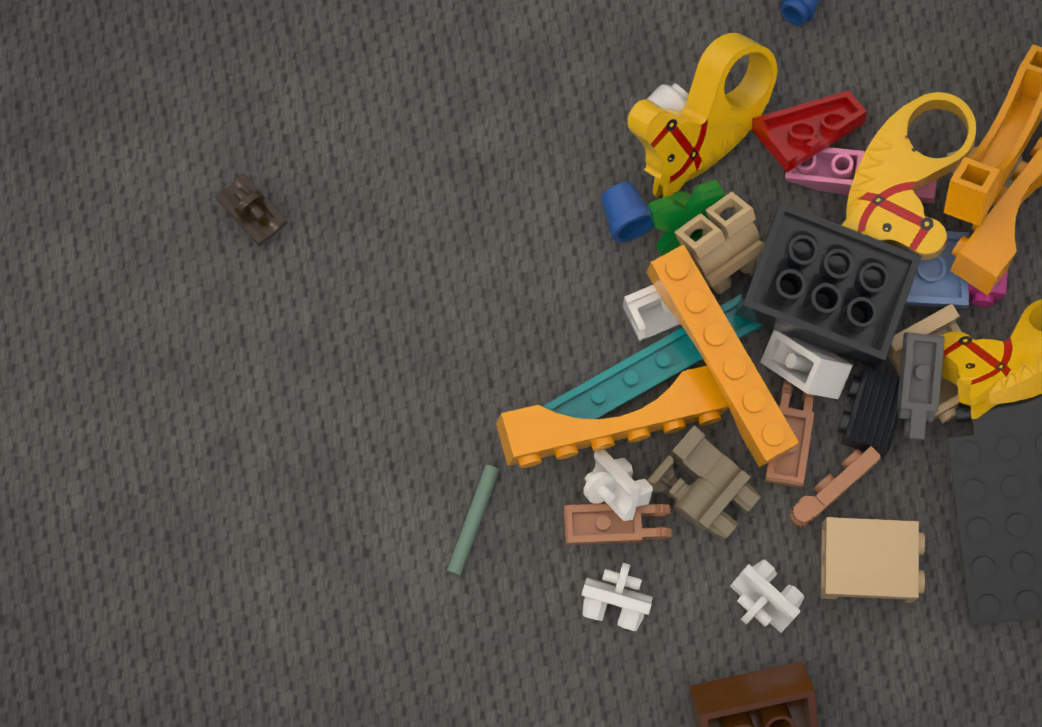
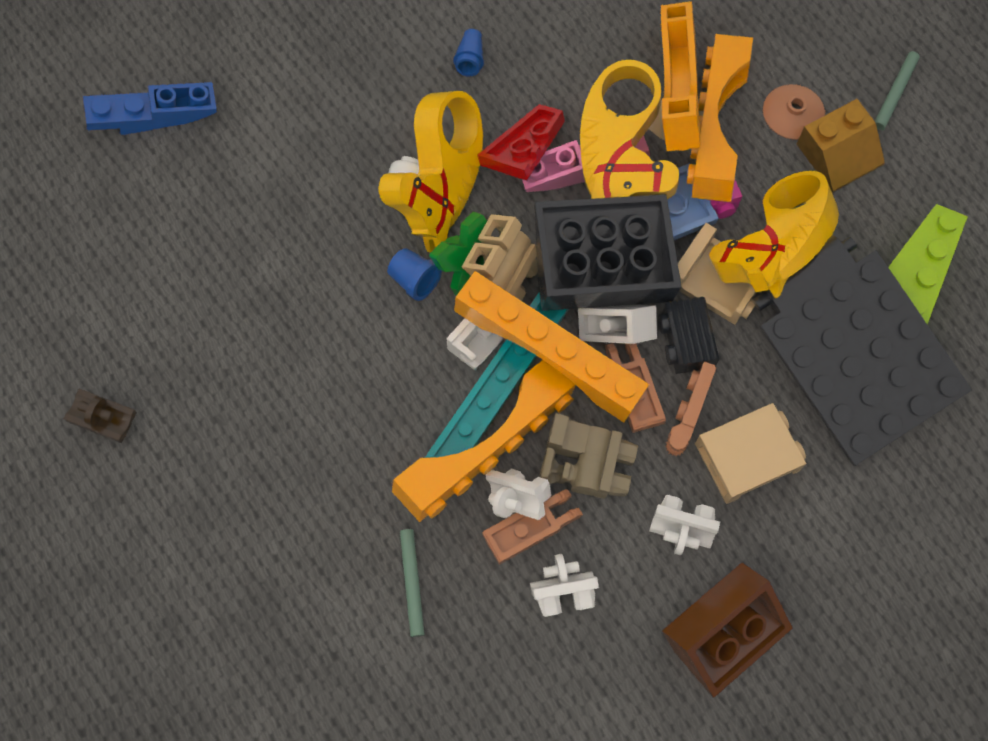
camera: 25 degrees left, 5 degrees down
(919, 382) = (715, 293): dark grey hinge -> none

